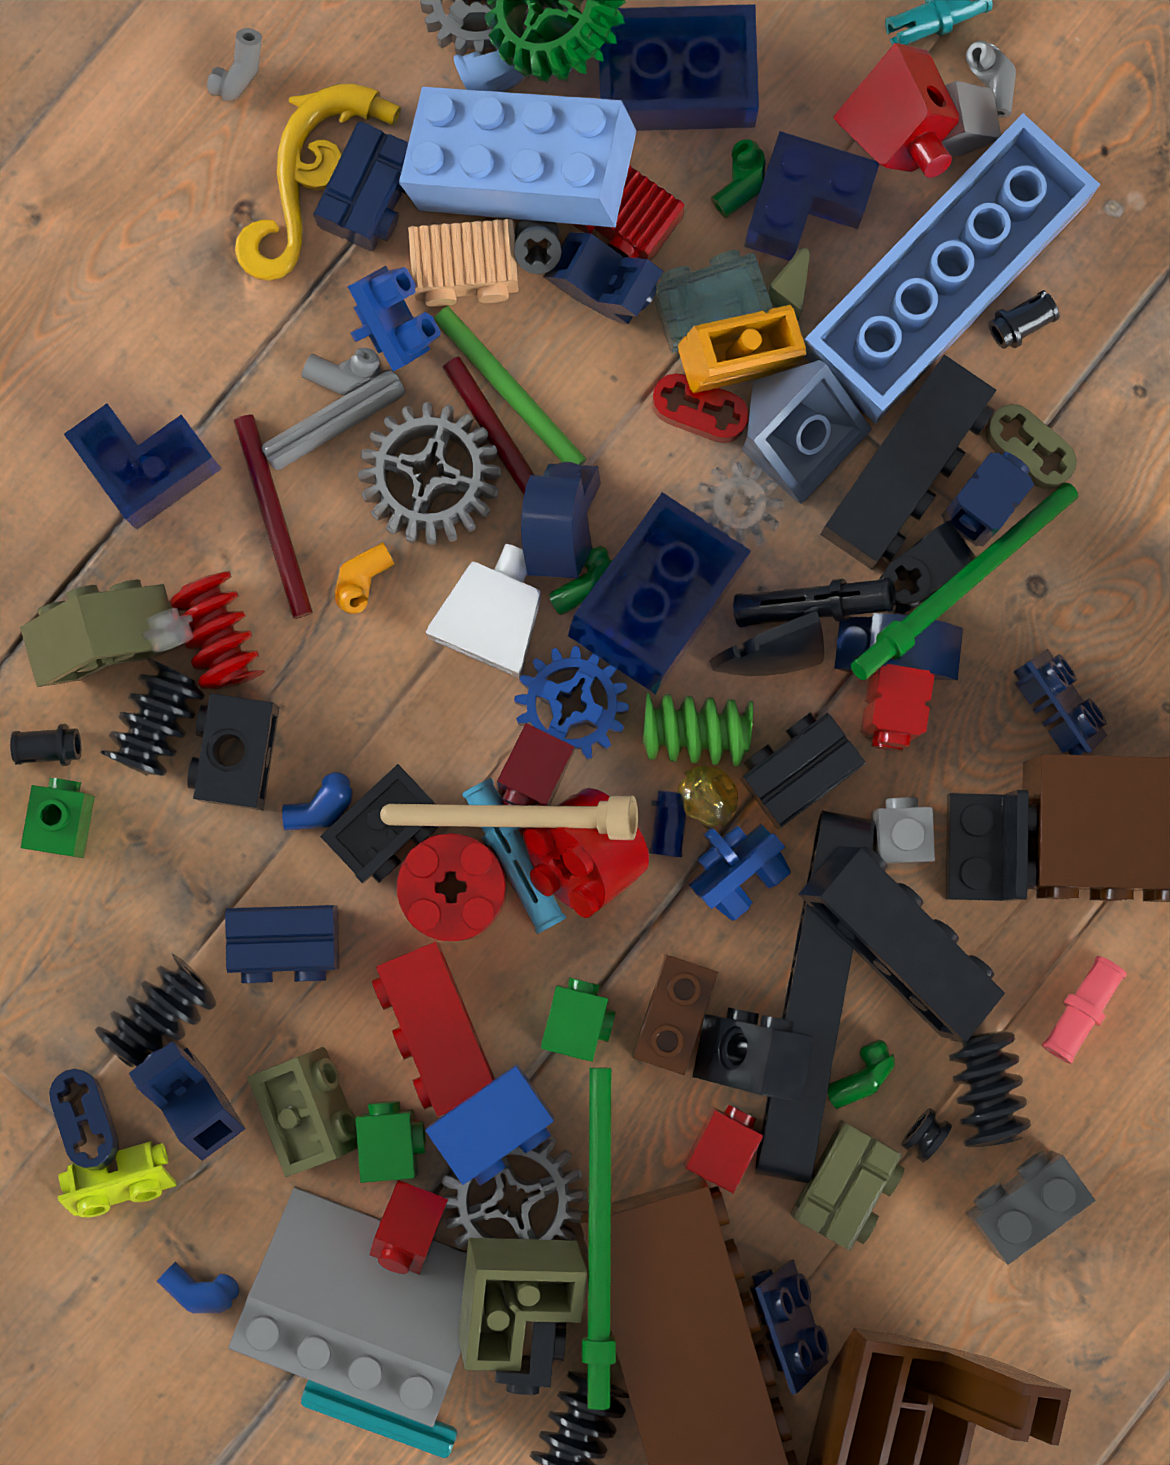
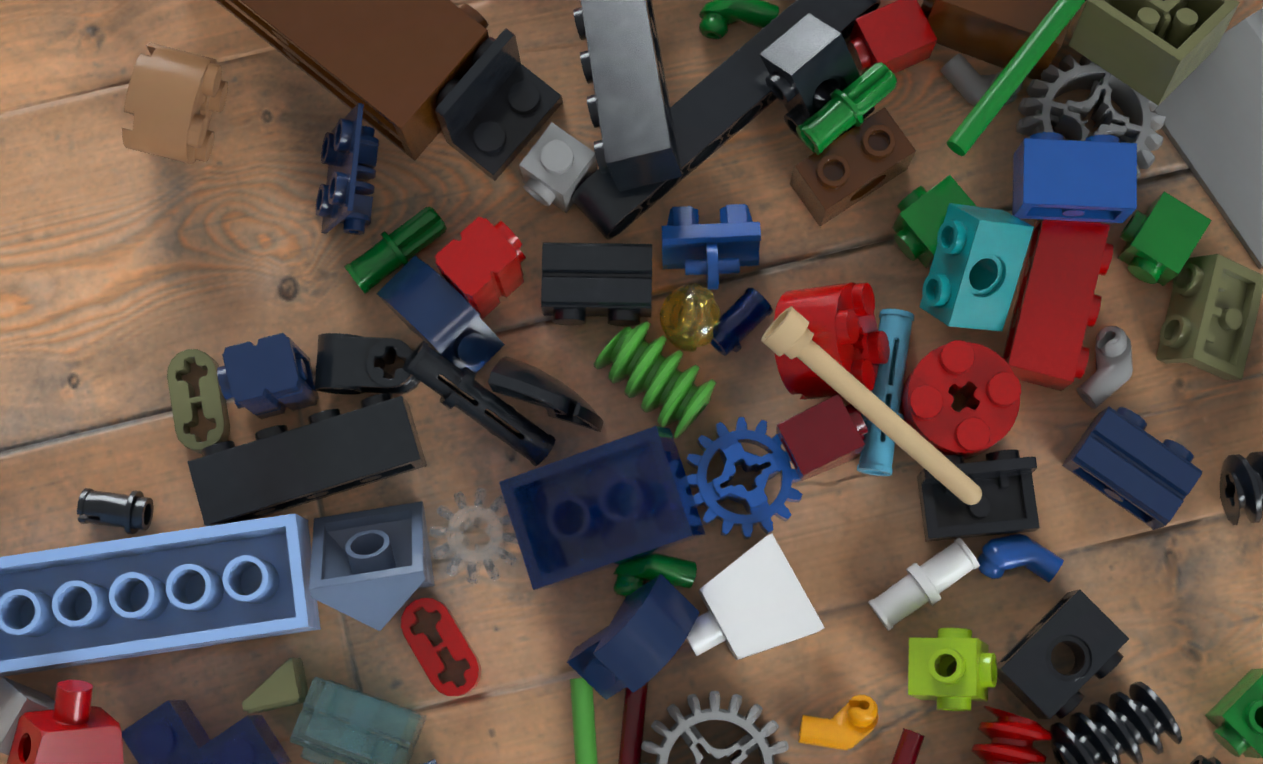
camera: 140 degrees left, 5 degrees down
(309, 676) = (932, 666): none -> lime brick
(353, 1013) = (1113, 366): none -> light grey arm
(376, 729) = (924, 583): none -> white pin
(407, 1228) = (1196, 159): red brick -> none
(516, 999) = (975, 267): none -> teal brick
(633, 1162) = (968, 81): none -> light grey arm
(712, 1047) = (846, 108): none -> green axle
(741, 348) = (367, 664): light orange brick -> none
(900, 636) = (437, 311): green bar -> none
(977, 677) = (396, 248): none -> green axle

